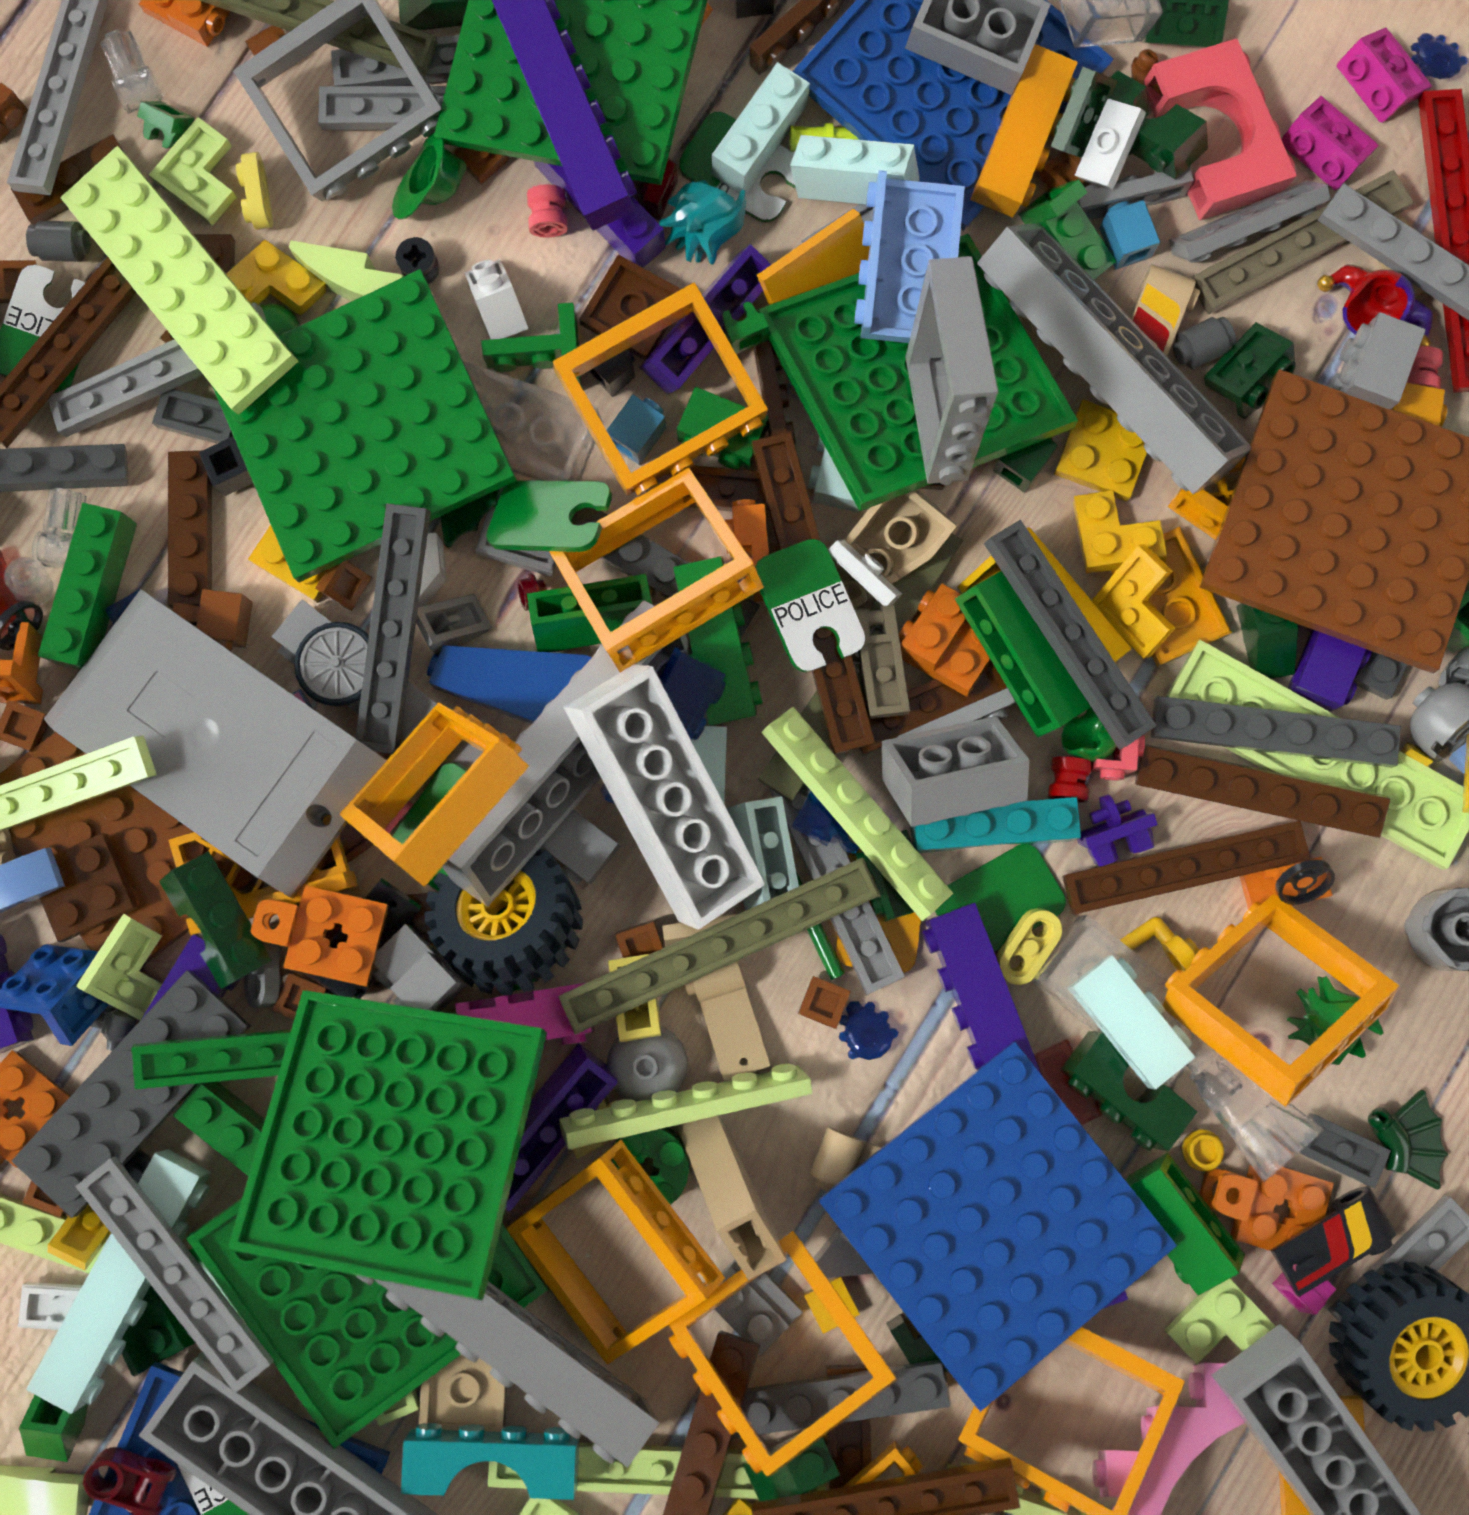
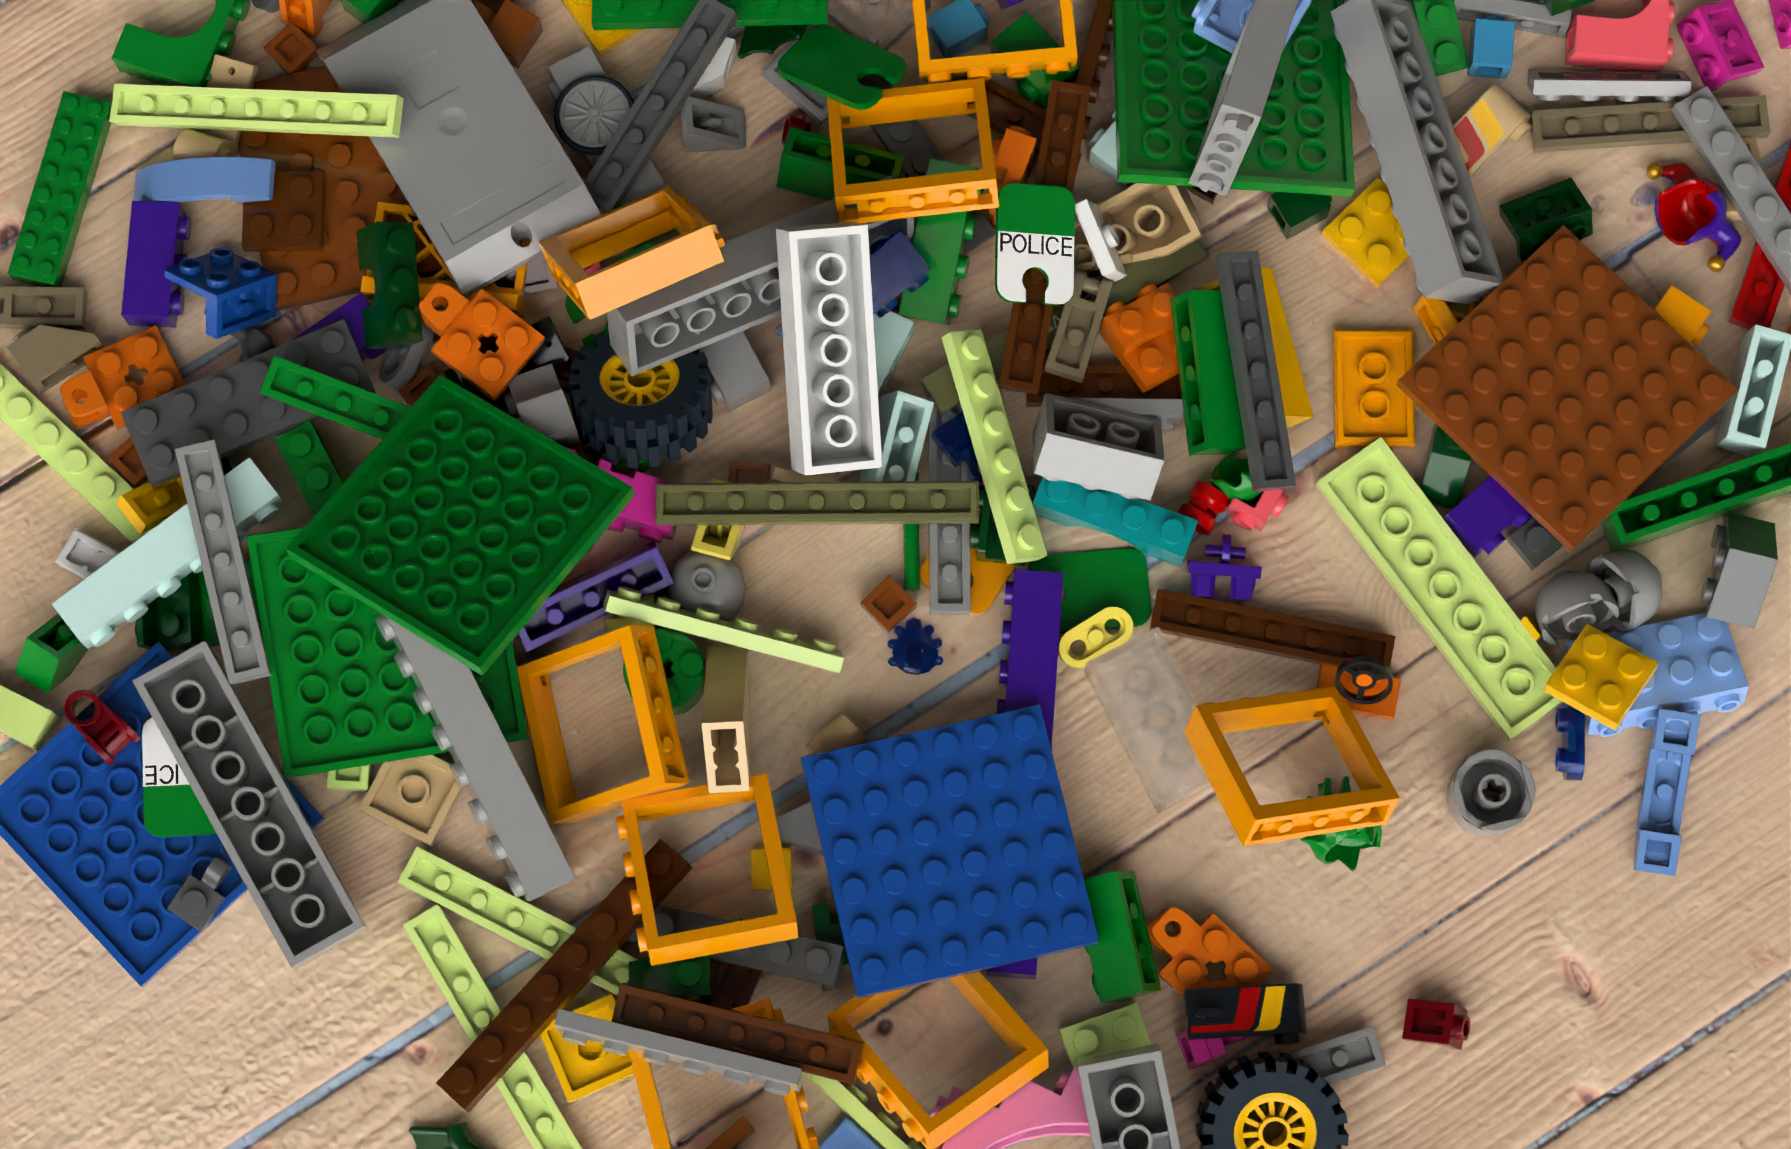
camera: 25 degrees right, 5 degrees down
(115, 970) = (282, 291): yellowish green plate -> none
(344, 584) = (632, 50): dark orange plate -> none
(503, 679) = (731, 192): blue slope -> none
(542, 1460) = (367, 832): teal arch -> none
(730, 1021) = (798, 577): tan door -> none
(759, 1309) = (704, 842): light grey plate -> none
(1050, 1062) = (1075, 772): clear red tile -> none
(1102, 538) = (1339, 316): yellow plate -> none
(1126, 602) = (1327, 372): yellow plate -> none
(1132, 1021) = (1150, 728): light aqua brick -> none
(1154, 1117) = (1131, 833): dark green arch -> none
(1177, 950) = (1218, 674): yellow plate -> none
(1202, 1150) = (1168, 887): yellow plate -> none
(1204, 342) = (1513, 174): dark grey brick -> none
(1256, 1121) = (1225, 871): clear piece -> none
(1262, 791) = (1372, 594): reddish brown plate -> none
(1276, 731) = (1409, 546): dark grey plate -> none
(1347, 1152) = (1294, 943): dark grey plate -> none
(1378, 360) = (1659, 258): light grey brick -> none
(1412, 1138) = (1364, 965): dark green arm -> none
(1426, 367) = (1705, 284): coral wheel -> none

